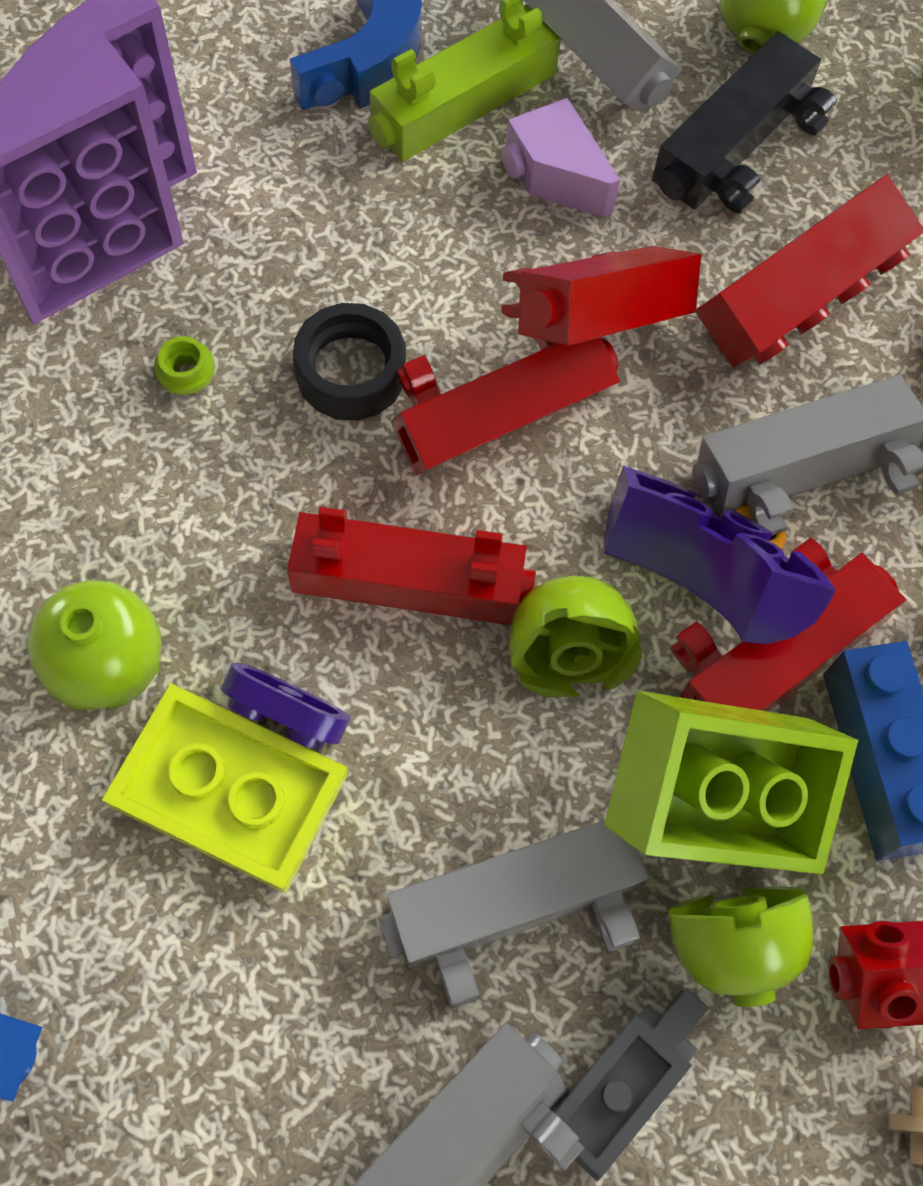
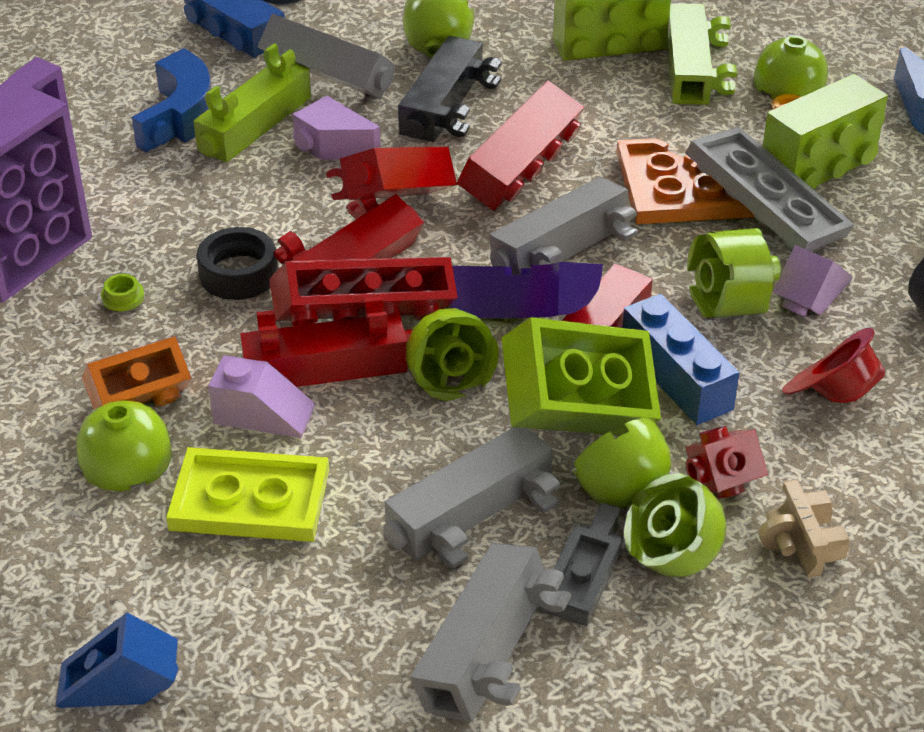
camera: 15 degrees left, 25 degrees down
(139, 543) = (139, 375): none -> orange brick
(261, 694) = (271, 437): dark purple plate -> none
(293, 625) = (257, 398): none -> lavender slope
(488, 494) = (338, 288): none -> red brick
(770, 1087) = (675, 526): none -> lime cylinder

